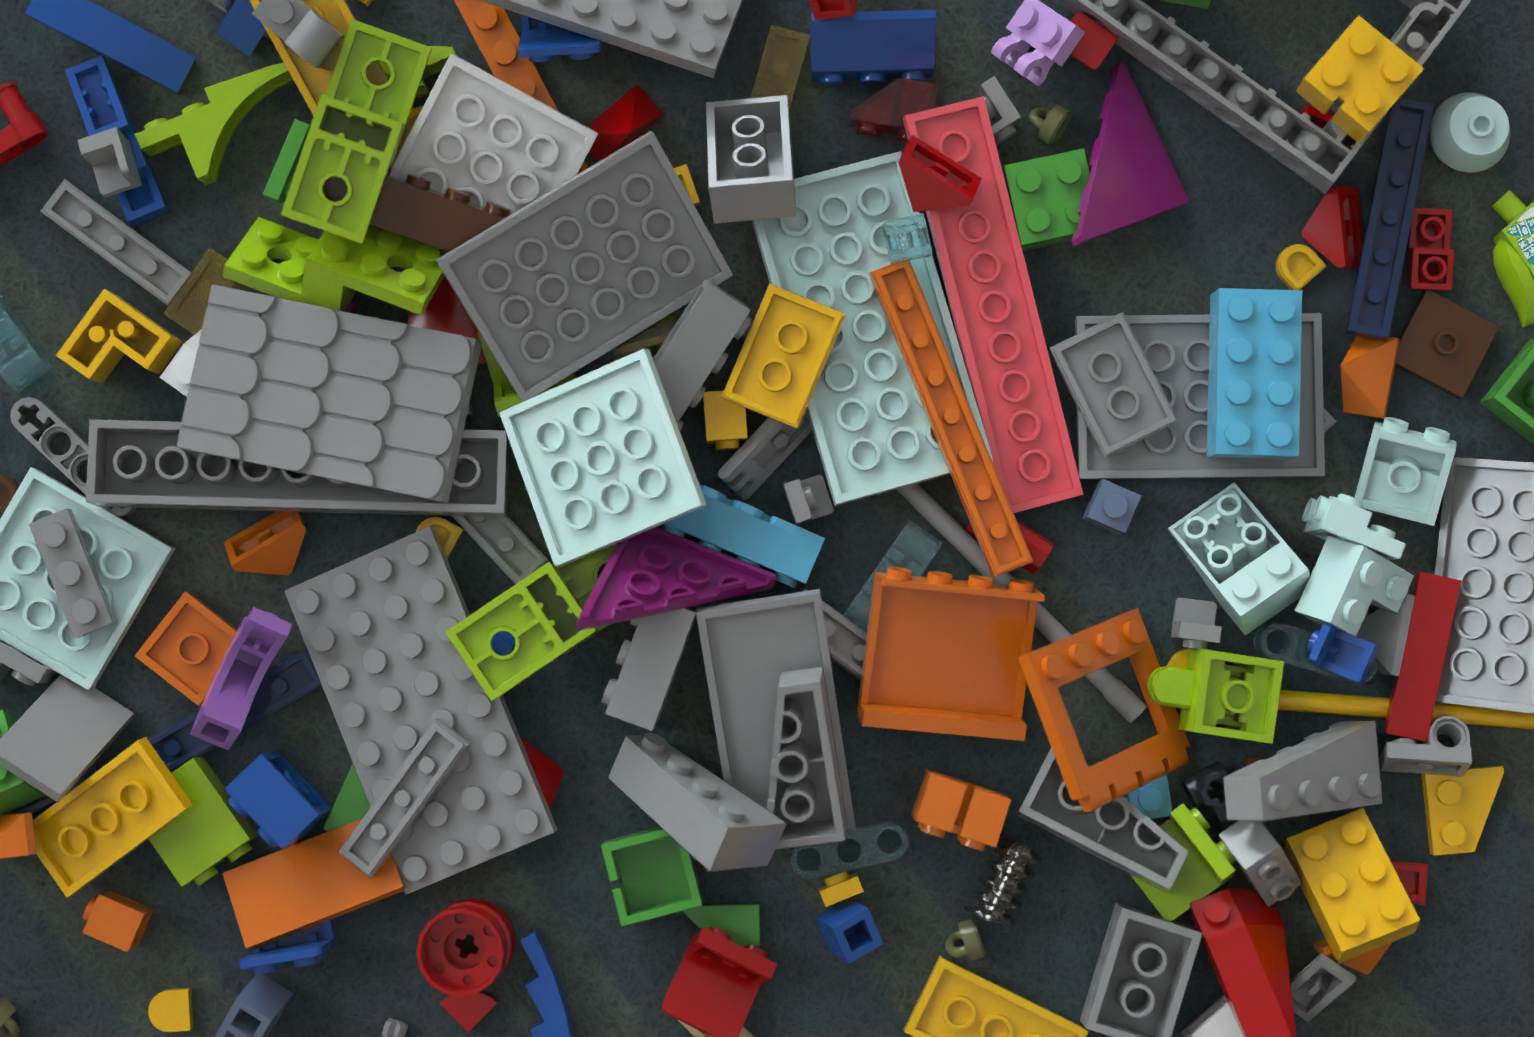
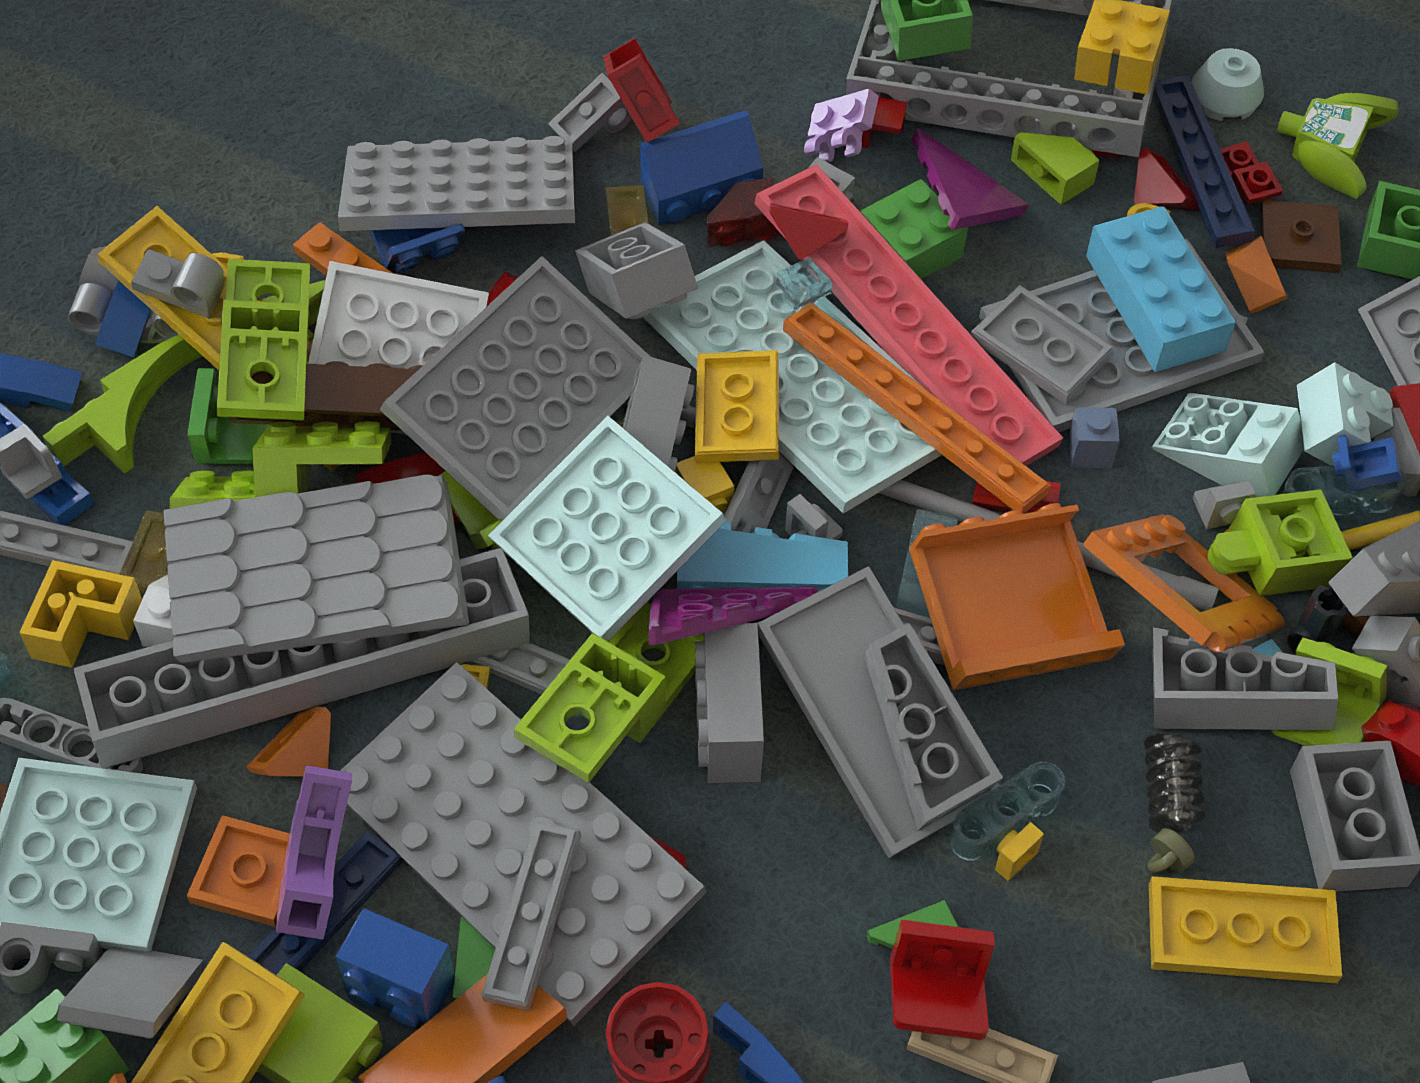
camera: 25 degrees left, 30 degrees down
(72, 573) = (95, 836): light grey plate -> none
(654, 874) = (822, 899): bright green piece -> none
(695, 805) = (836, 798): light grey wedge -> none
(848, 930) = (1047, 880): blue brick -> none
(960, 809) = (1084, 738): orange piece -> none
(1054, 124) = (883, 184): olive tile -> none
(1240, 166) = (1055, 163): none -> lime slope
(1348, 521) = (1301, 359): light aqua plate -> none
(1405, 471) = (1330, 325): light aqua plate -> none

